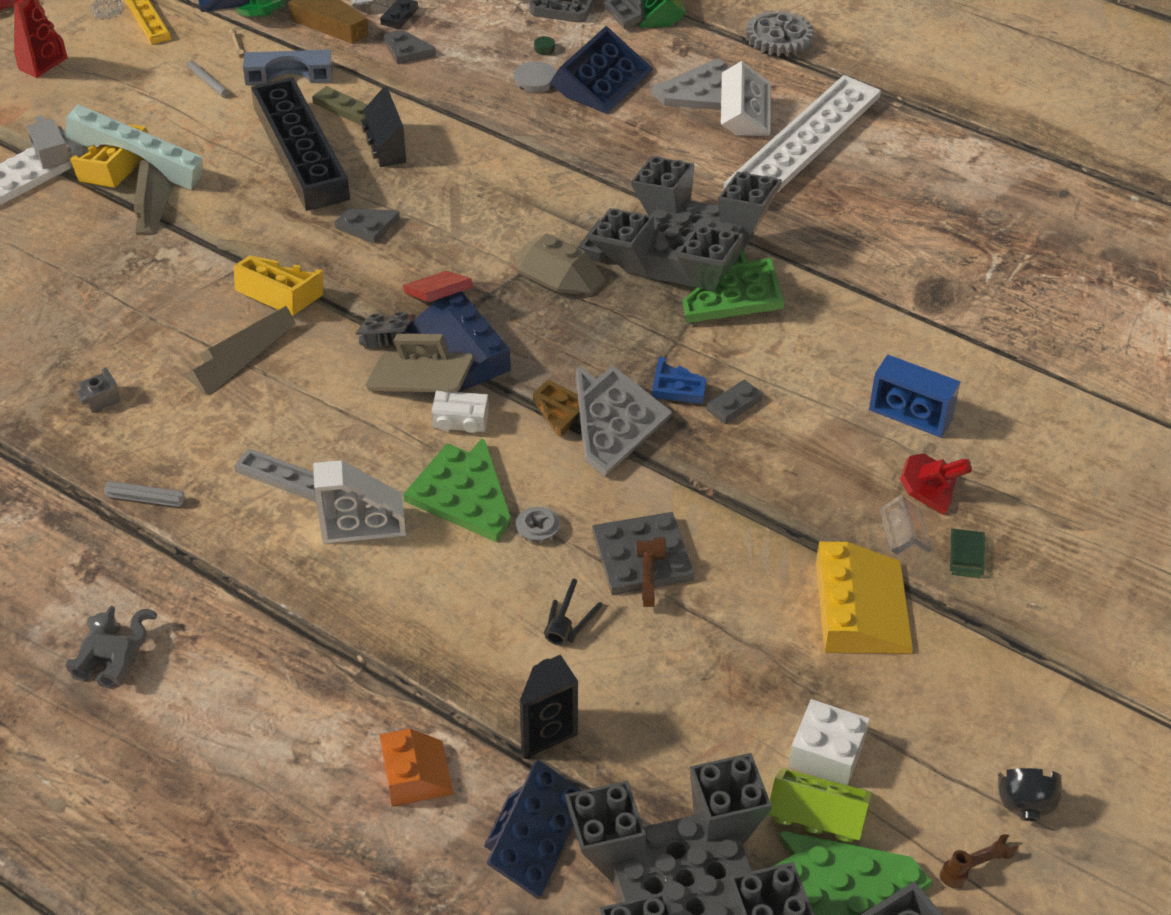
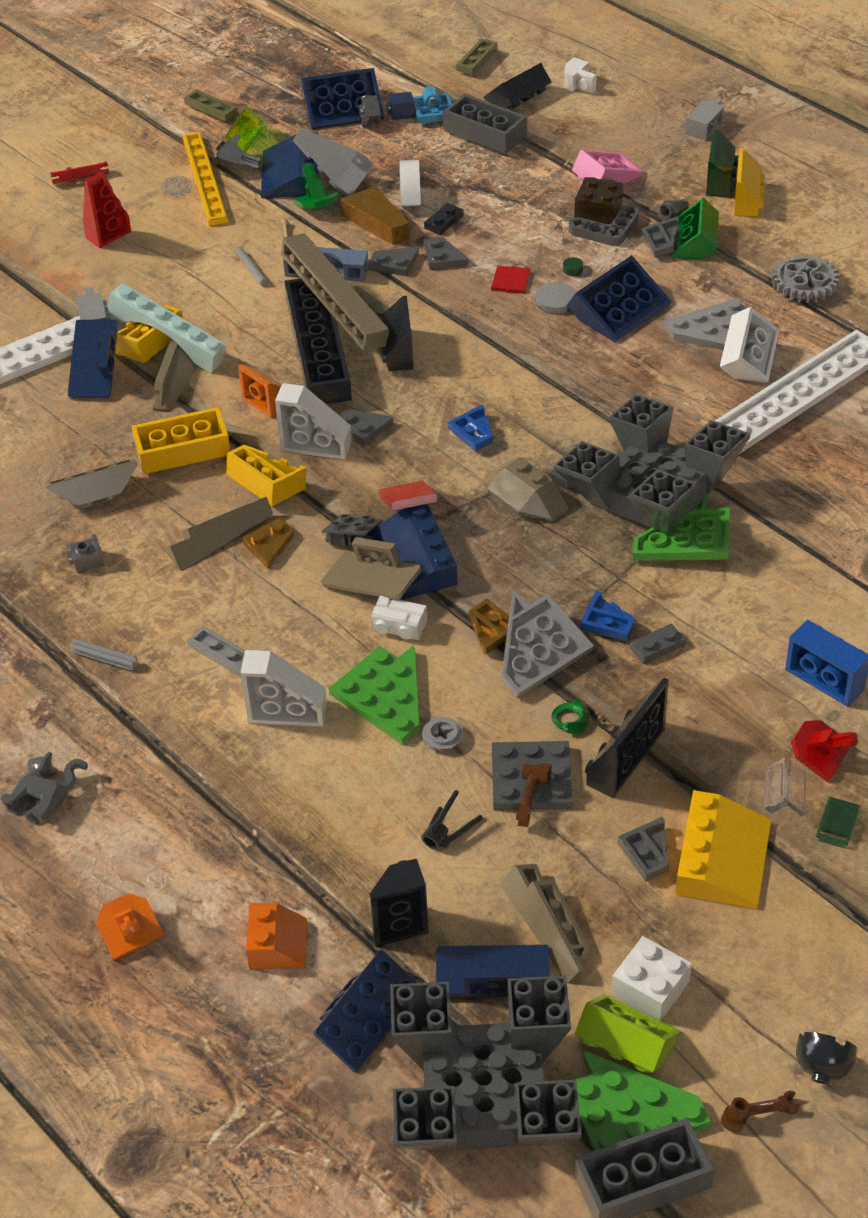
camera: 15 degrees right, 0 degrees up
(59, 188) = (93, 358): none -> dark blue bracket
(92, 316) = (94, 484): none -> dark tan wedge
(177, 260) = (181, 440): none -> yellow brick
(244, 781) = (127, 925): none -> orange piece
(254, 201) = (259, 389): none -> orange slope
(297, 352) = (269, 541): none -> pearl gold wing
(309, 91) = (334, 292): none -> dark tan brick
(316, 227) = (310, 425): none -> white brick
(358, 58) = (394, 260): none -> dark grey wing
(484, 64) = (510, 279): none -> red piece
(486, 212) = (472, 428): none -> blue wing
(656, 760) = (486, 968): none -> dark blue bracket
(672, 498) = (575, 727): none -> green piece
(701, 697) = (547, 917): none -> dark tan wedge
(736, 502) = (629, 742): none -> black slope
(784, 609) = (647, 848): none -> dark grey wing

